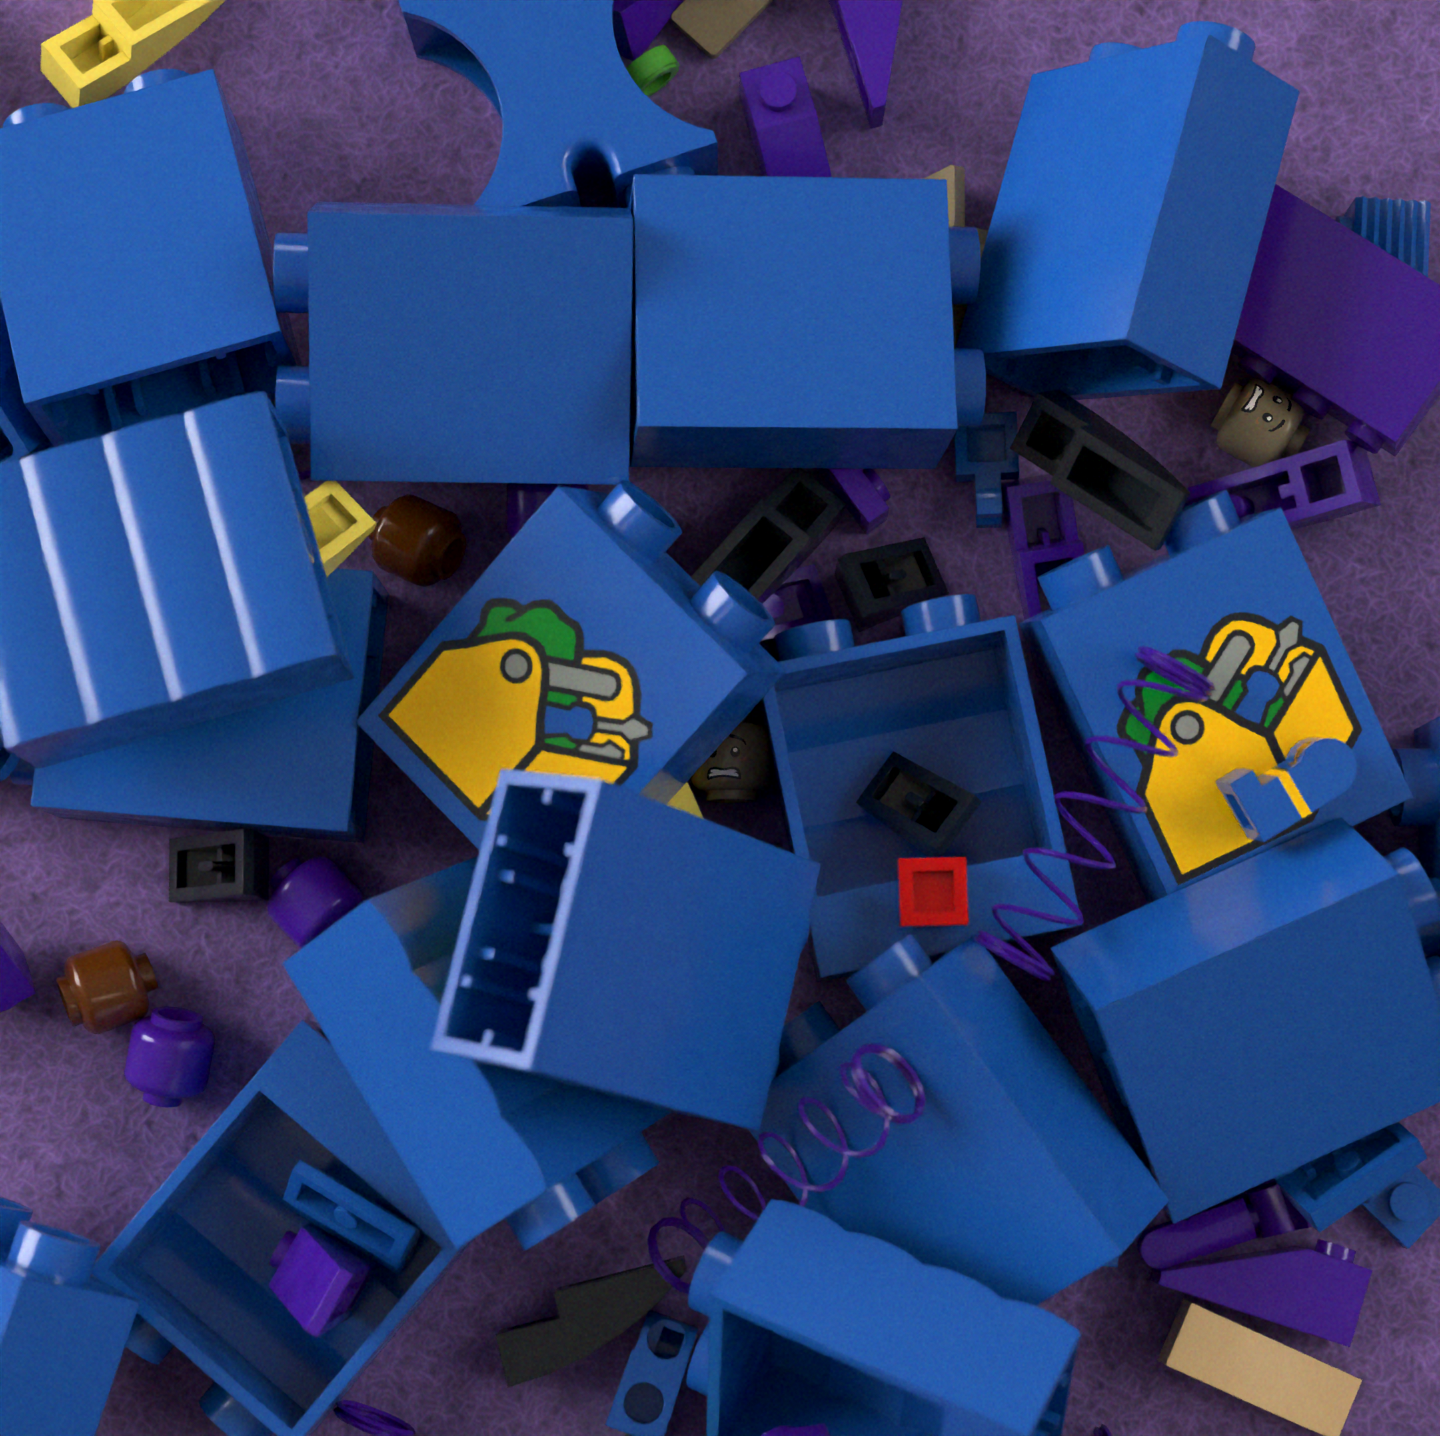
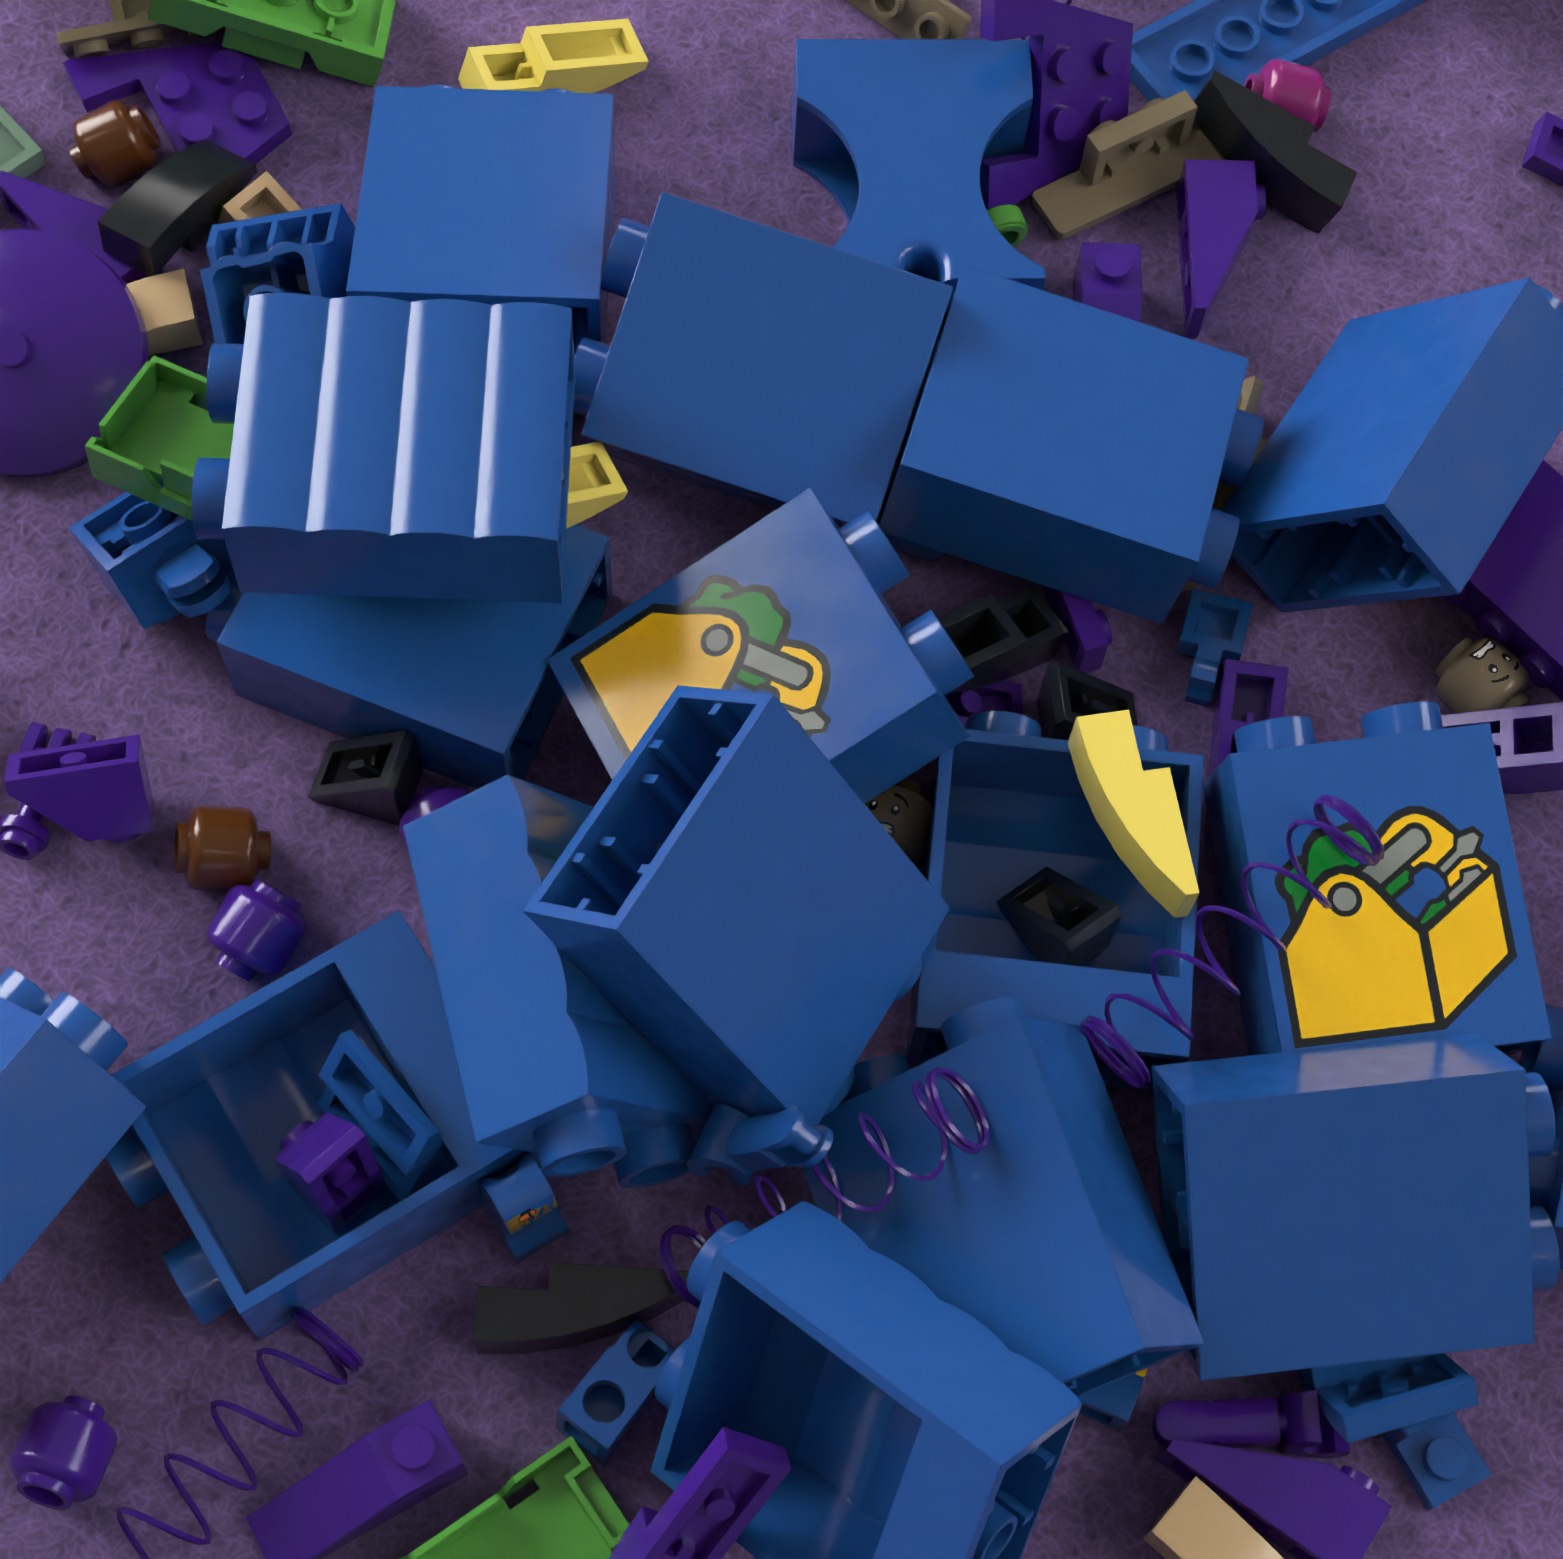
camera: 10 degrees right, 15 degrees down
(417, 540) = (653, 545): reddish brown head -> none
(504, 1256) = (523, 1208): none -> blue leg
(701, 1148) = (757, 1142): none -> blue piece
(932, 892) = (1051, 973): red plate -> none
(965, 702) = (1135, 808): none -> light yellow slope
(1101, 467) = (1322, 656): black slope -> none
(1308, 779) = (1433, 982): blue leg -> none

